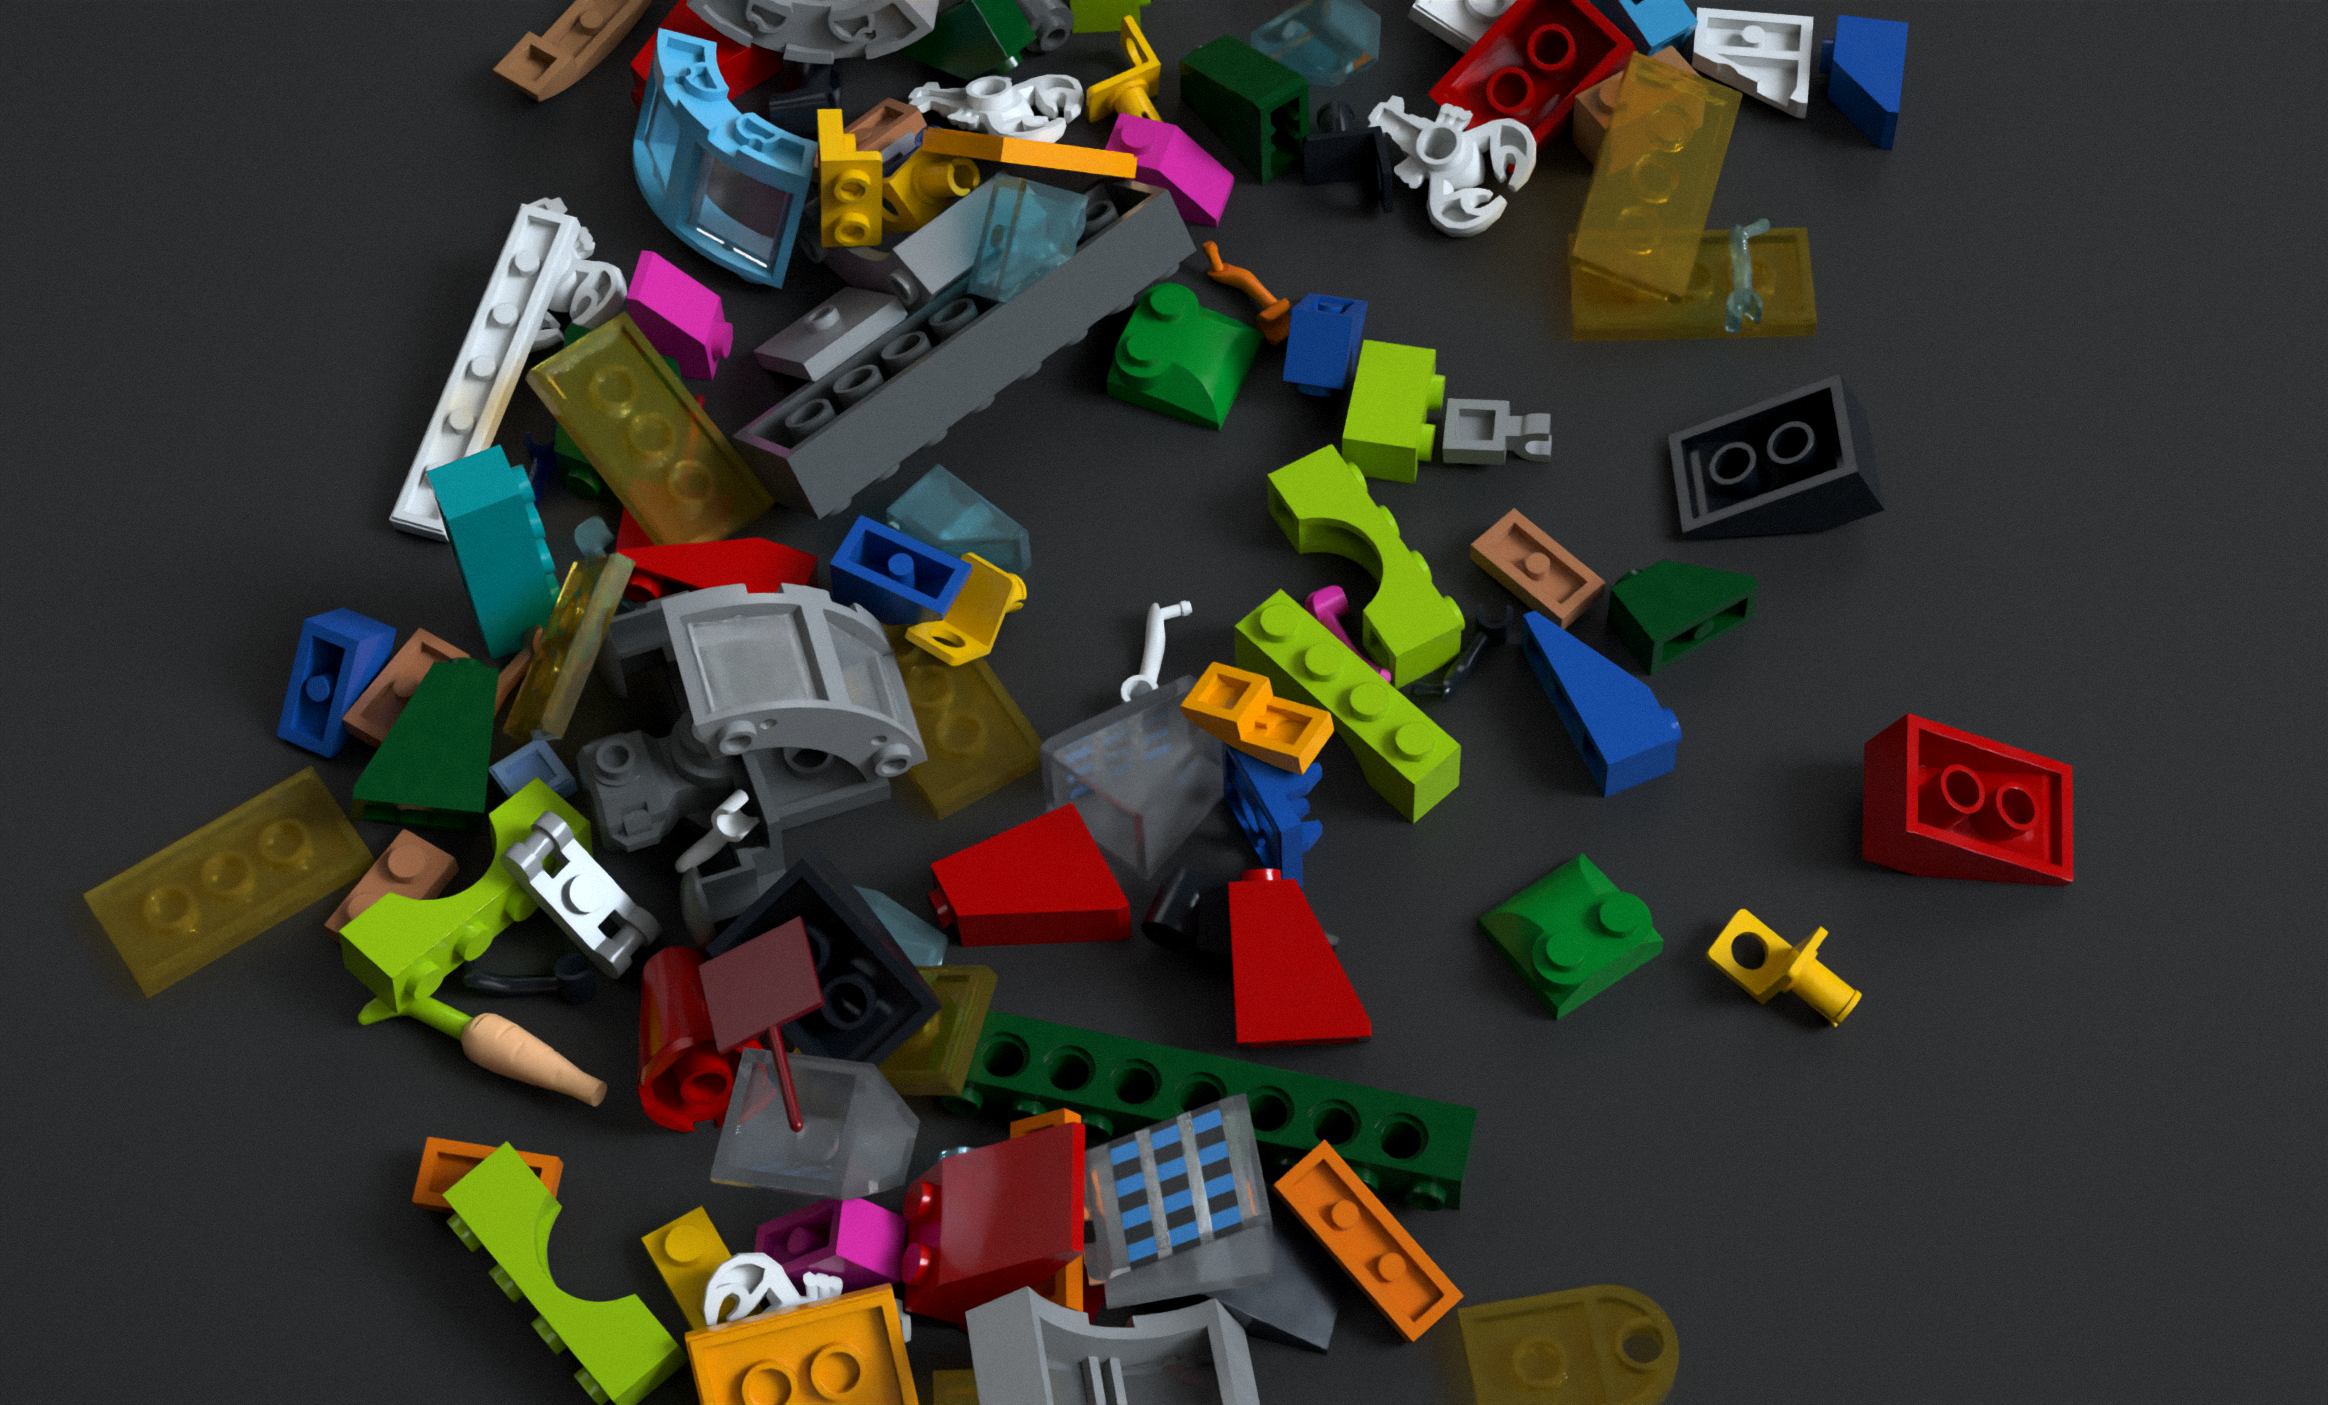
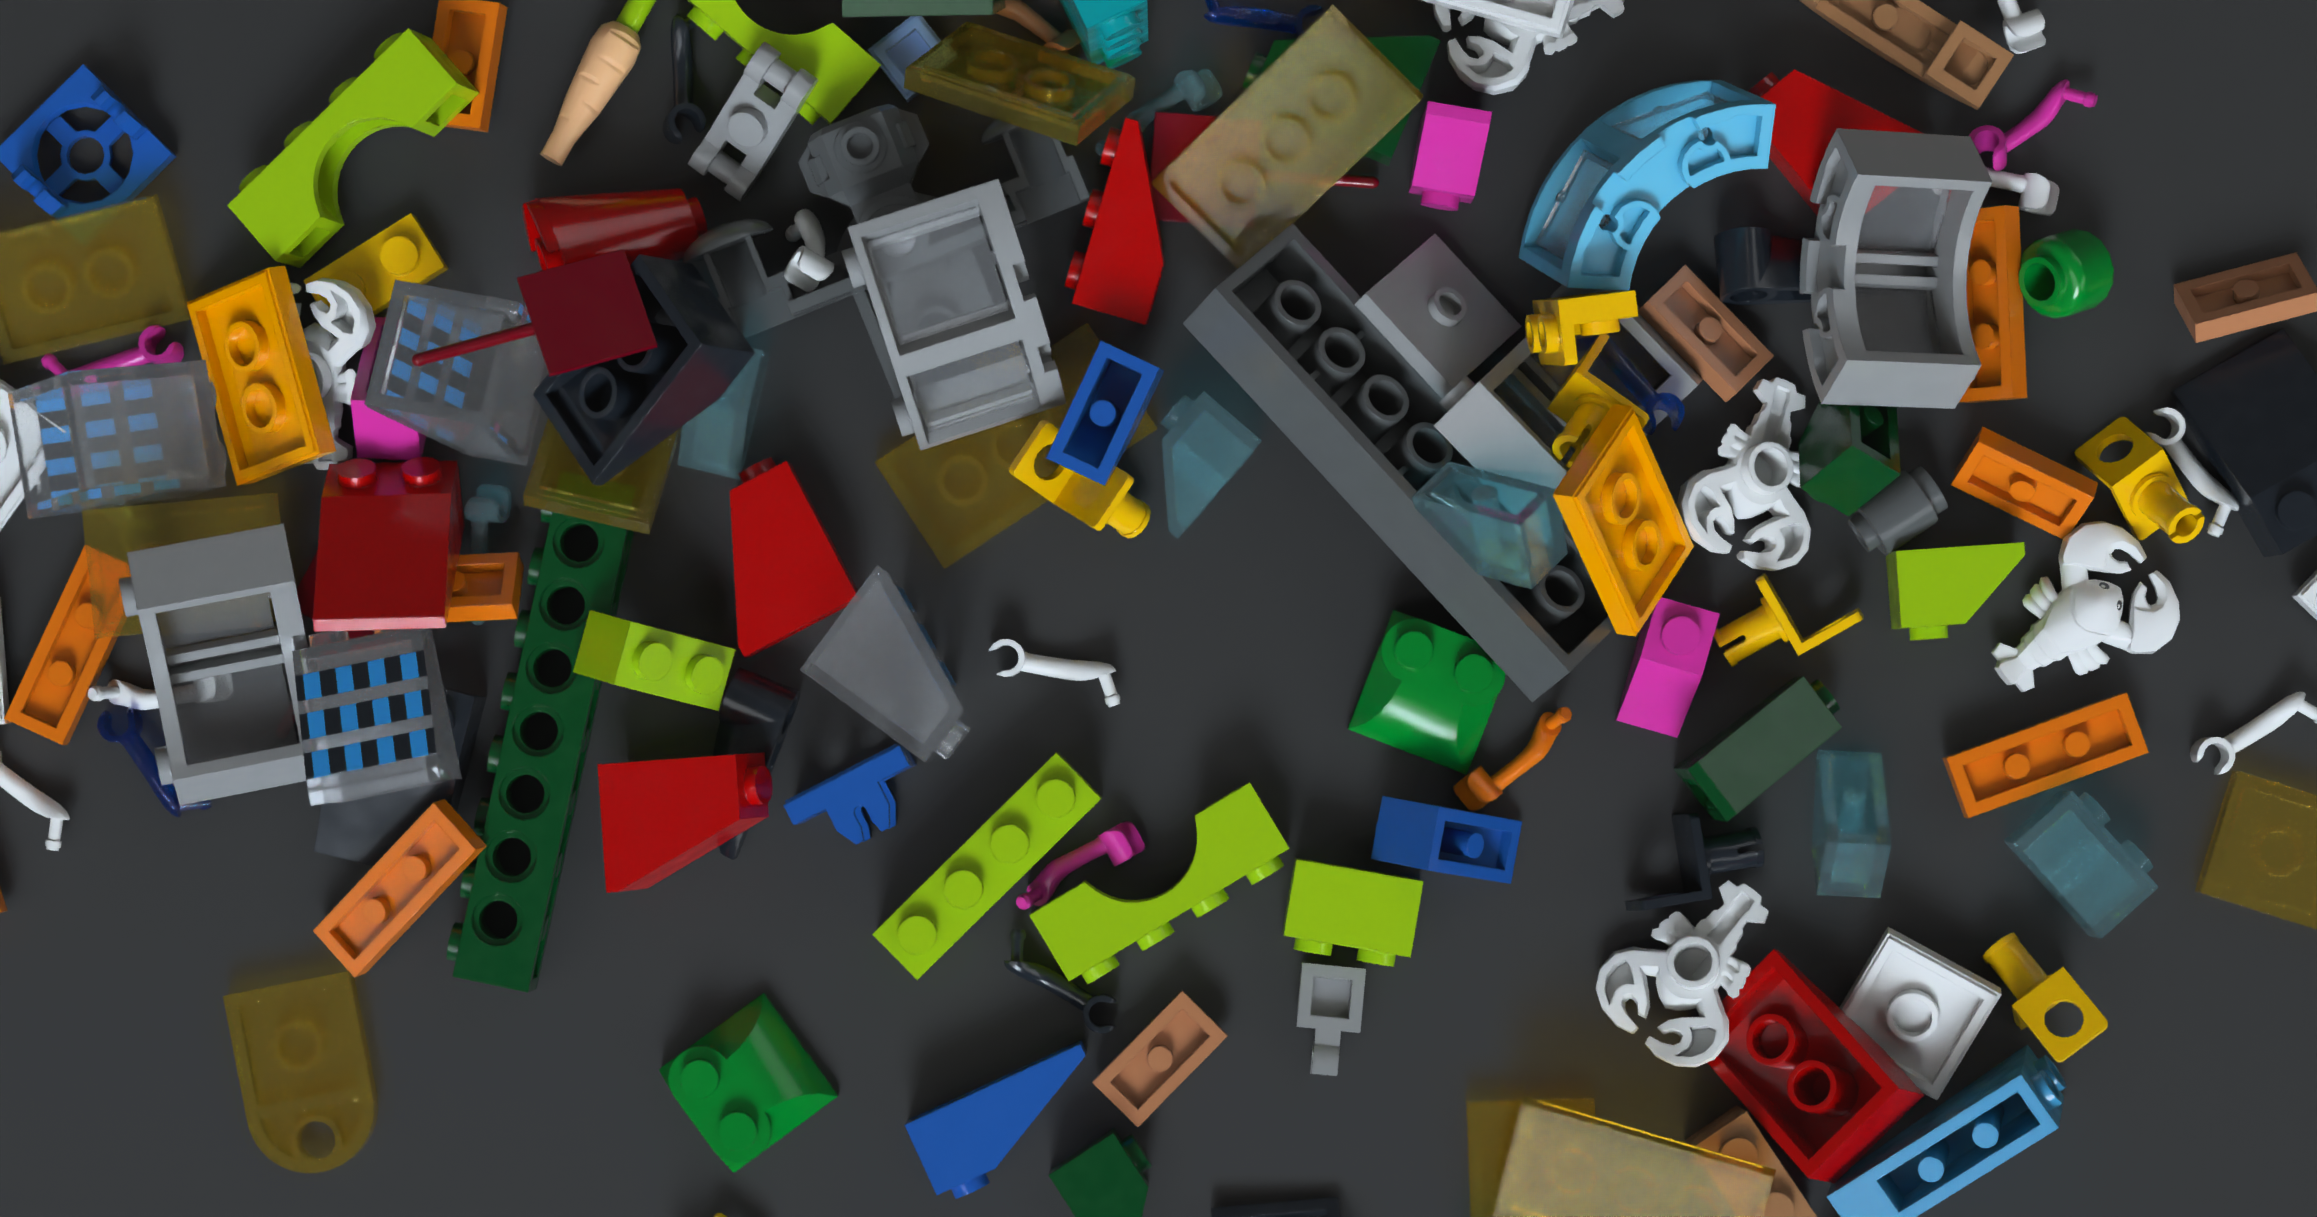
camera: 90 degrees right, 30 degrees up
(1129, 981) = (653, 660): none -> lime brick
(1246, 715) = (902, 780): light orange slope -> none

